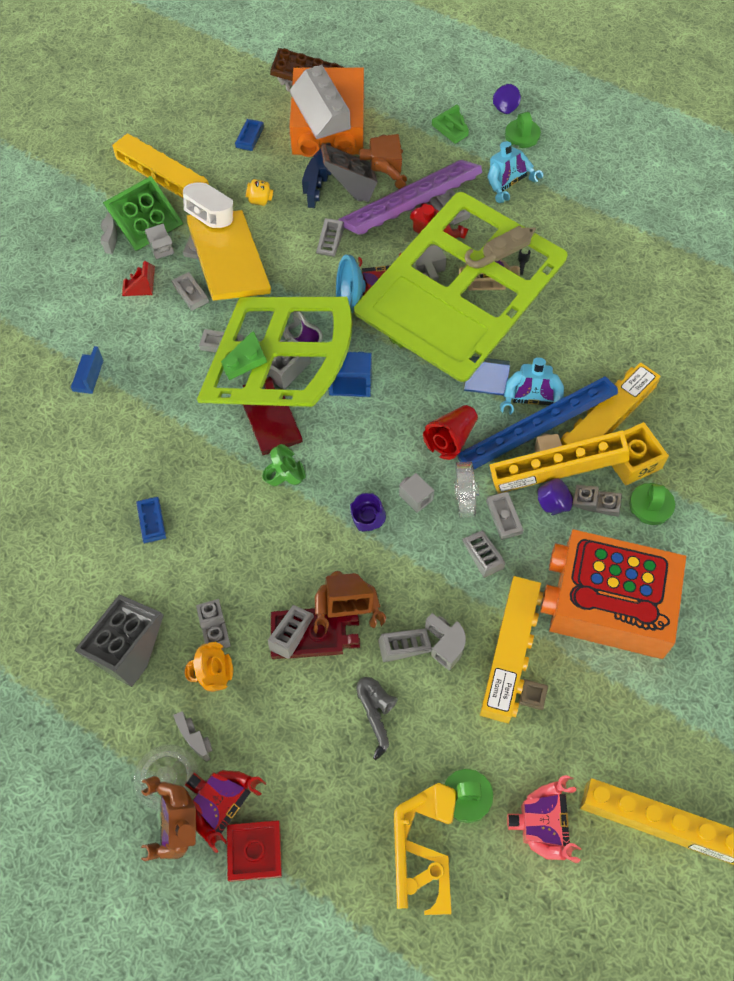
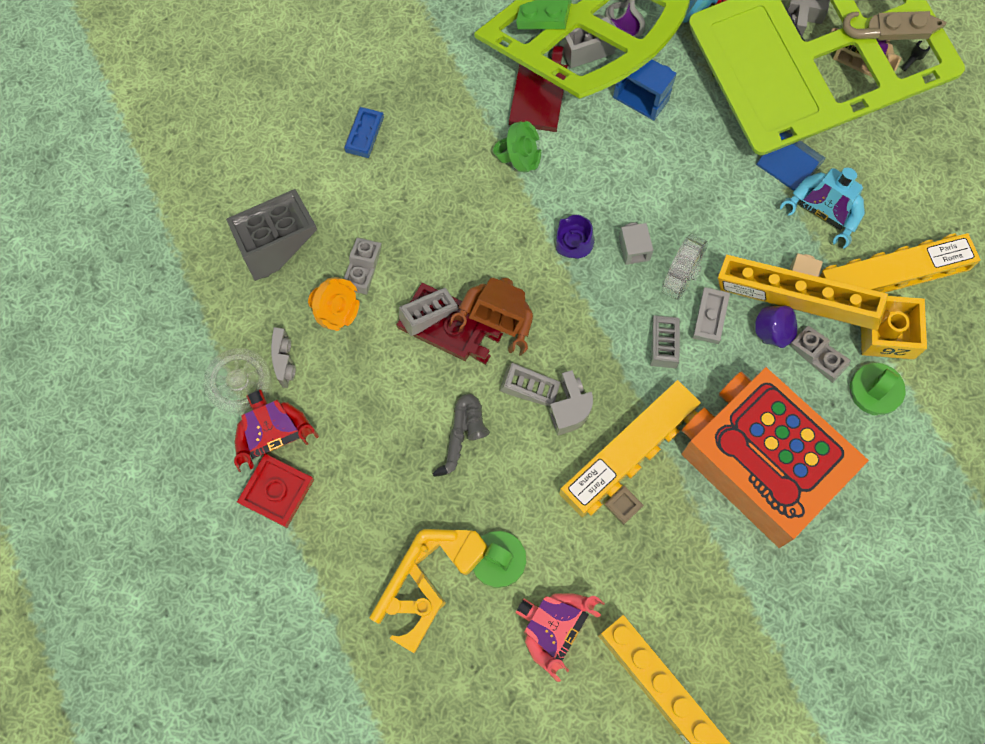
camera: 30 degrees right, 10 degrees up
(177, 820) = (221, 421): dark orange torso -> none
(450, 431) = (711, 199): red cone -> none
(539, 422) = (812, 239): blue plate -> none

